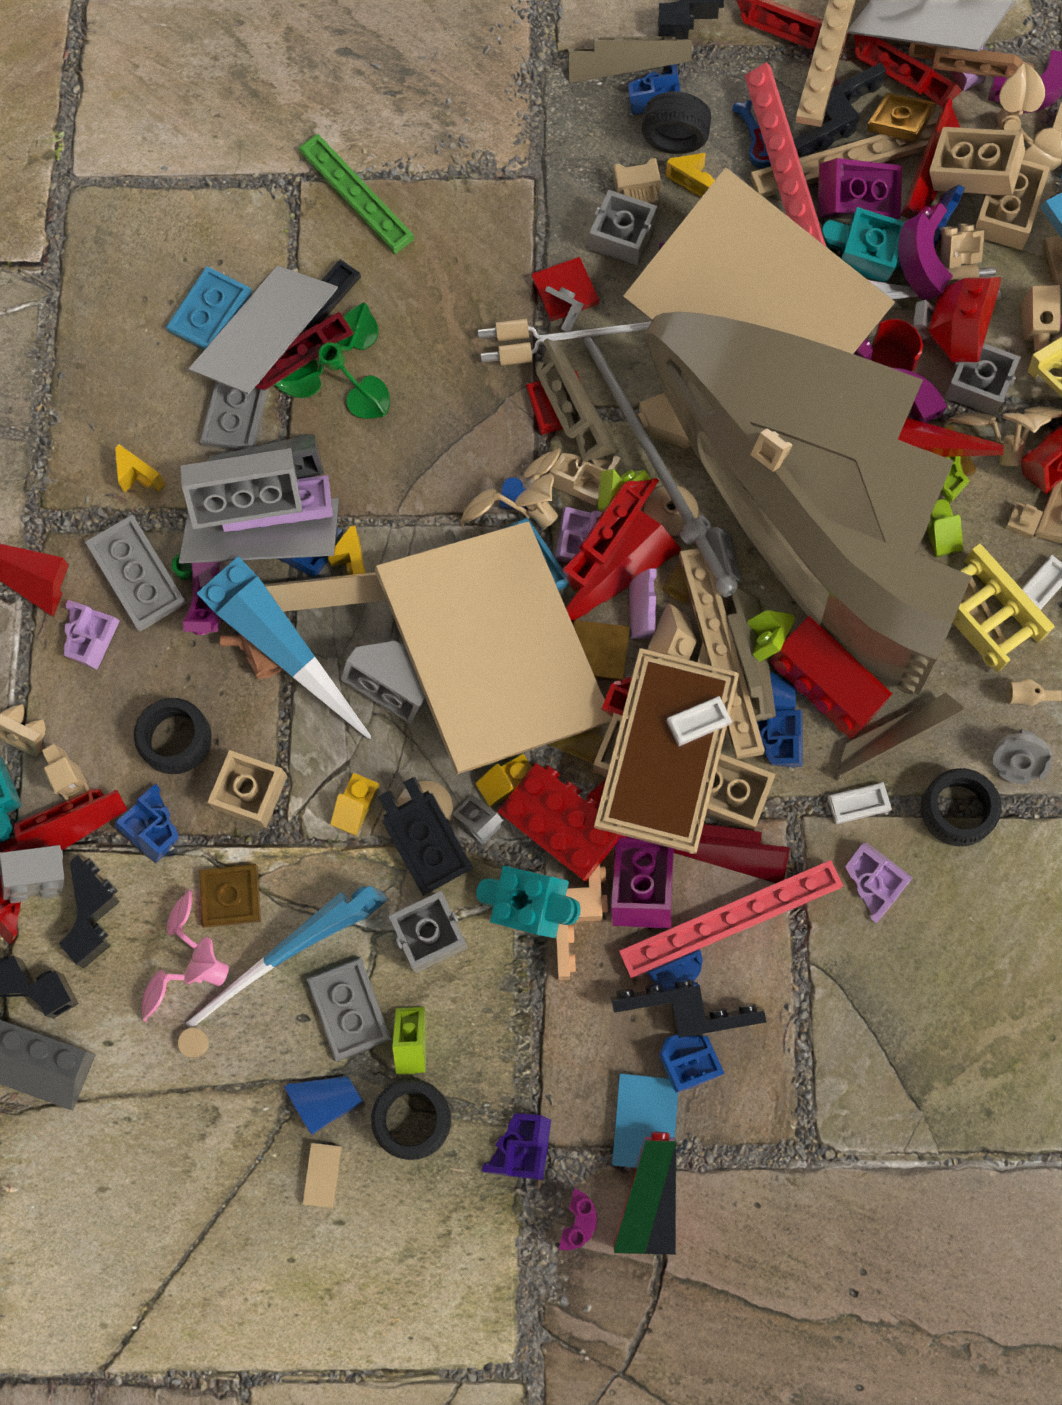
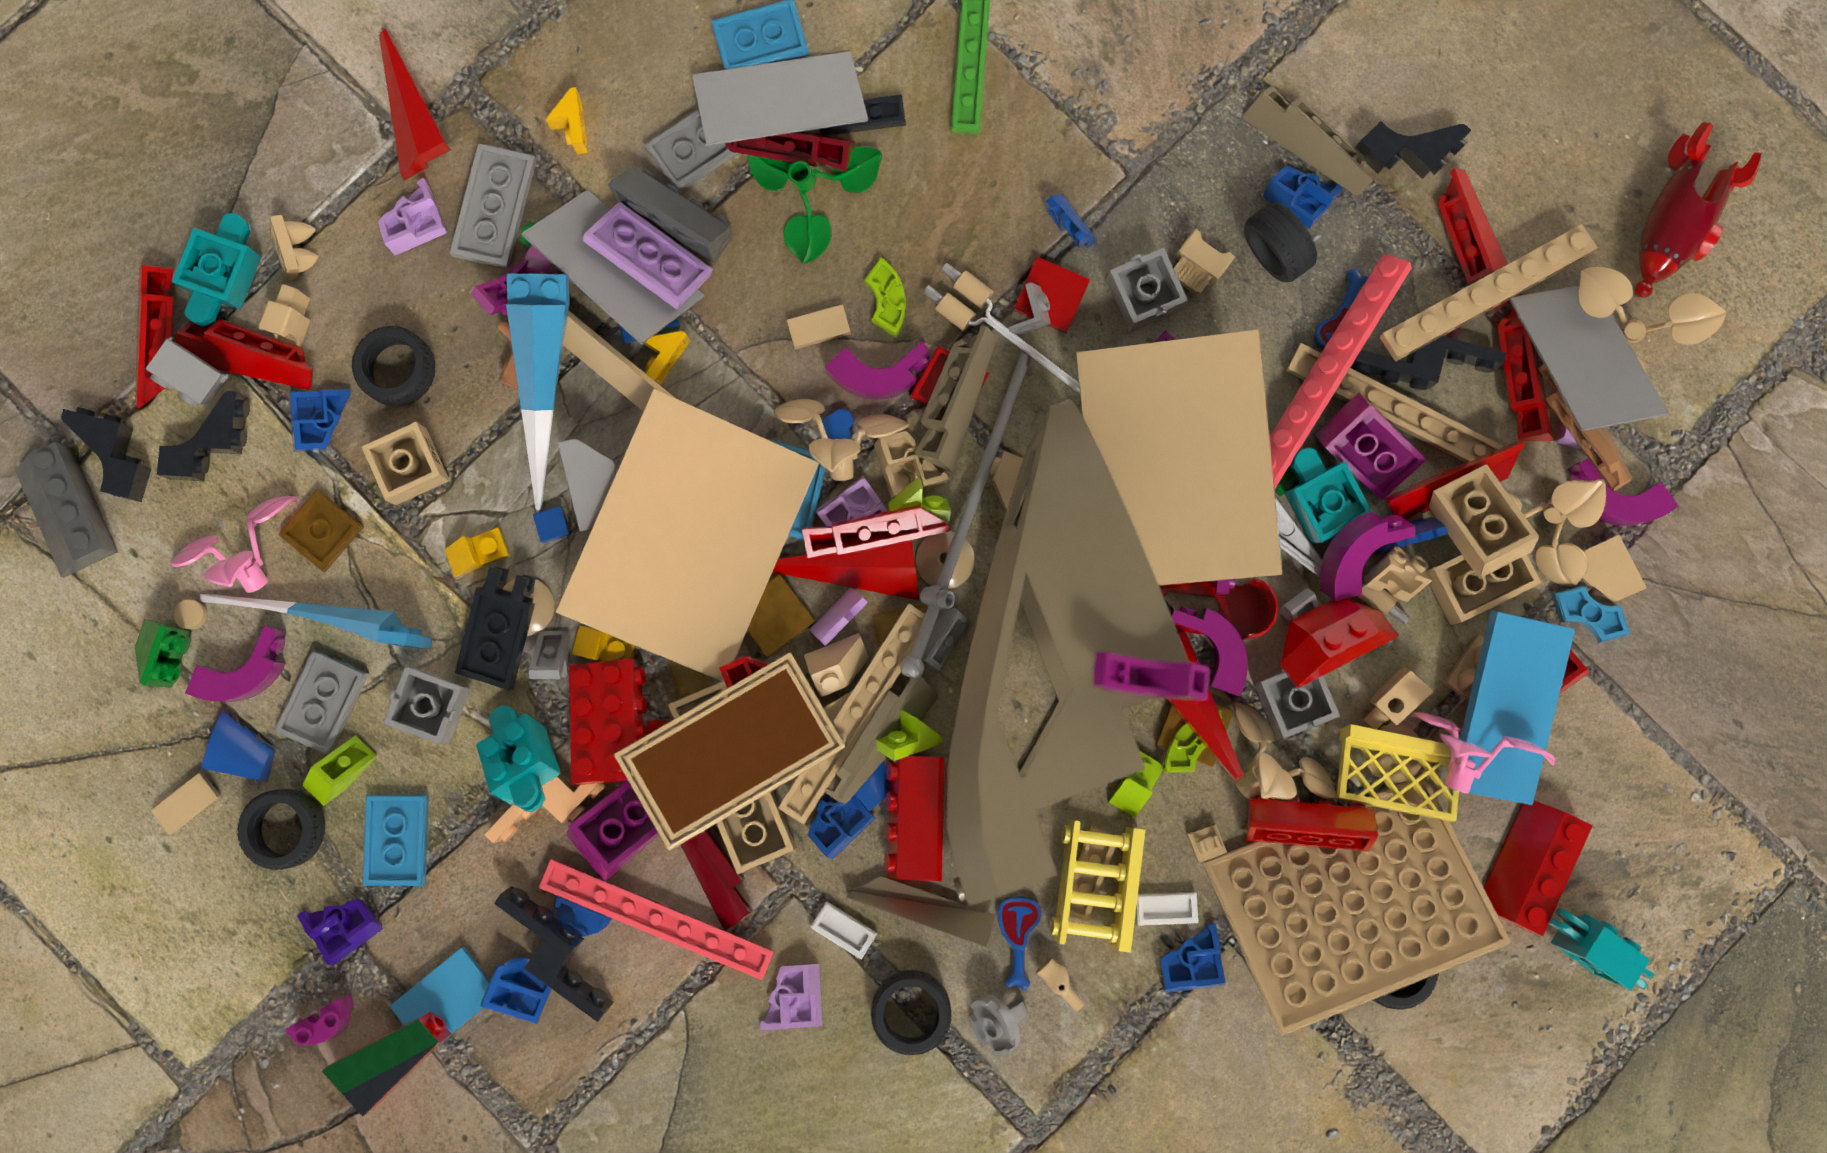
camera: 40 degrees right, 10 degrees up
(196, 1082) = (160, 653): none -> green slope
(241, 488) = (620, 221): light grey brick -> none
(281, 1049) = (248, 680): none -> magenta arch
(388, 736) = (551, 524): none -> blue tile
(435, 446) = (818, 326): none -> tan tile
(462, 386) = (889, 297): none -> lime tile
(497, 1050) = (395, 840): none -> dark azure tile
(504, 448) = (877, 383): none -> magenta arch
(521, 233) = (1067, 218): none -> blue slope
(687, 173) = (1251, 290): yellow slope -> none
(699, 721) = (773, 754): white tile -> none
(770, 449) = (1010, 615): tan tile -> none
(899, 399) = (1150, 677): none -> magenta arch
(901, 116) = (1474, 416): pearl gold tile -> none
(962, 684) = (1016, 920): none -> blue piece

